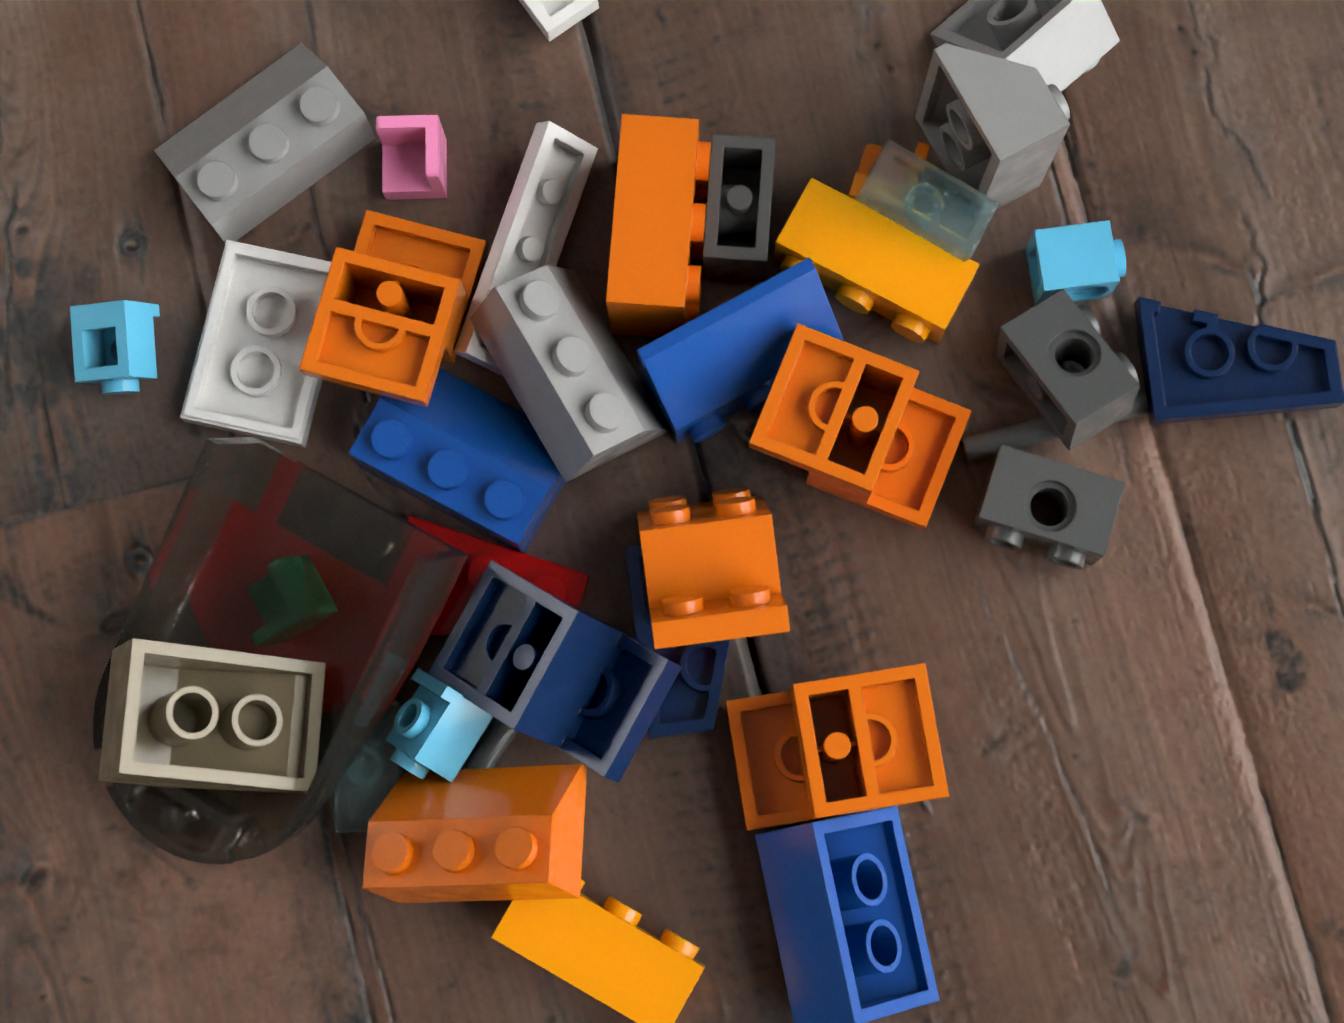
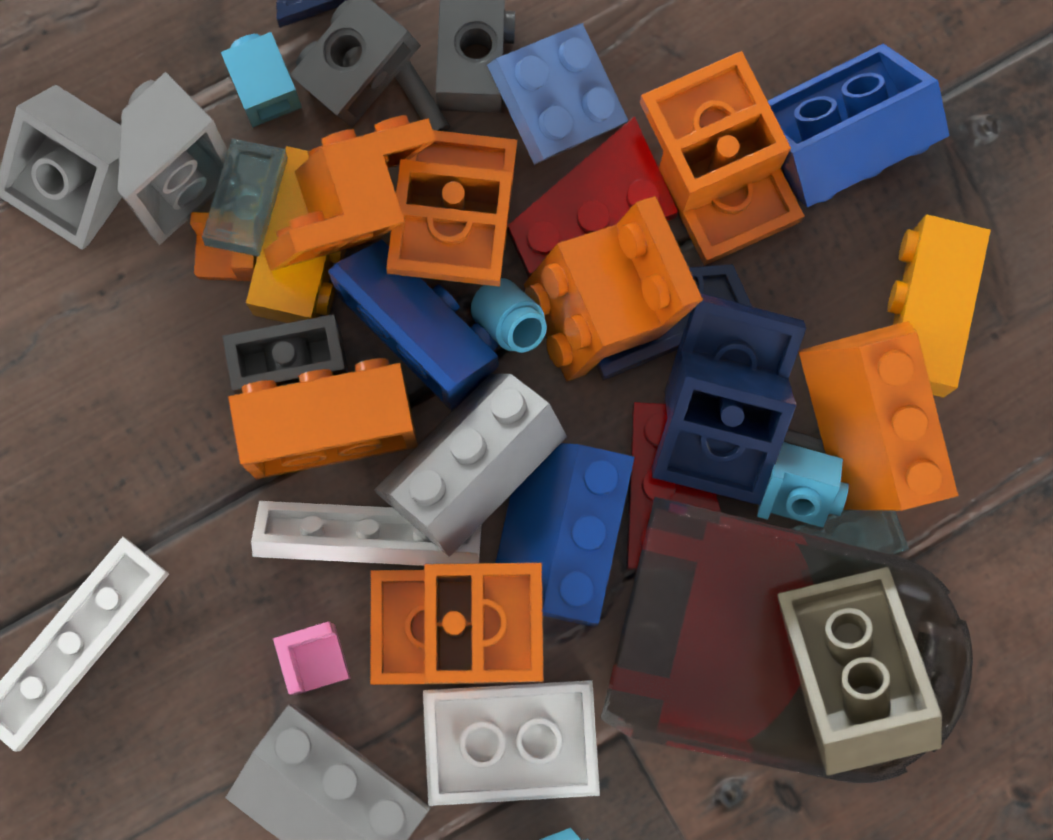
camera: 115 degrees left, 0 degrees up
(289, 600) = (737, 638): clear green panel -> none
(719, 460) = (509, 316): none -> medium azure brick
(831, 595) = (592, 196): none -> red wing
(892, 301) = (348, 191): none -> orange bracket
(967, 586) = (557, 93): none -> medium blue plate

